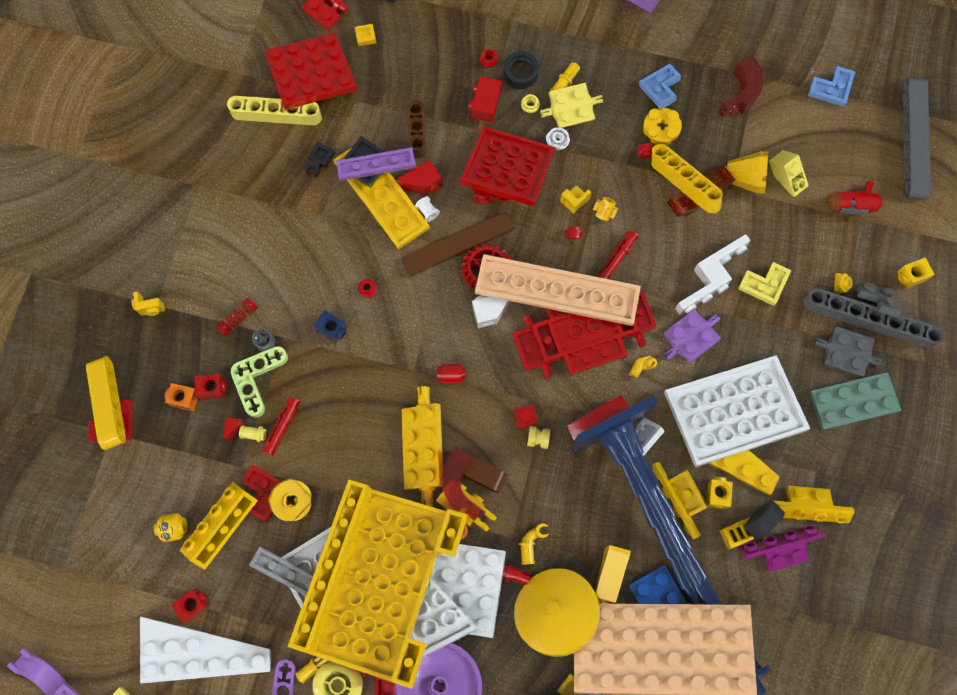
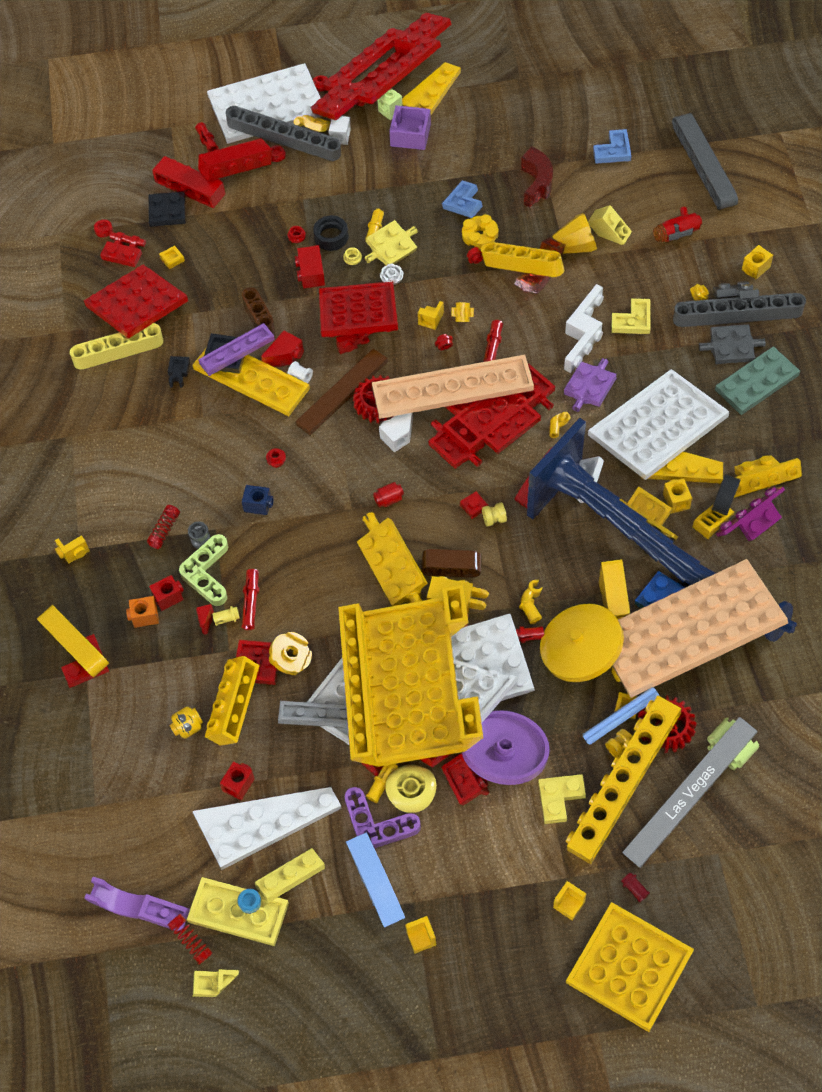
camera: 20 degrees left, 15 degrees down
(452, 474) = (435, 574): clear red arch -> none

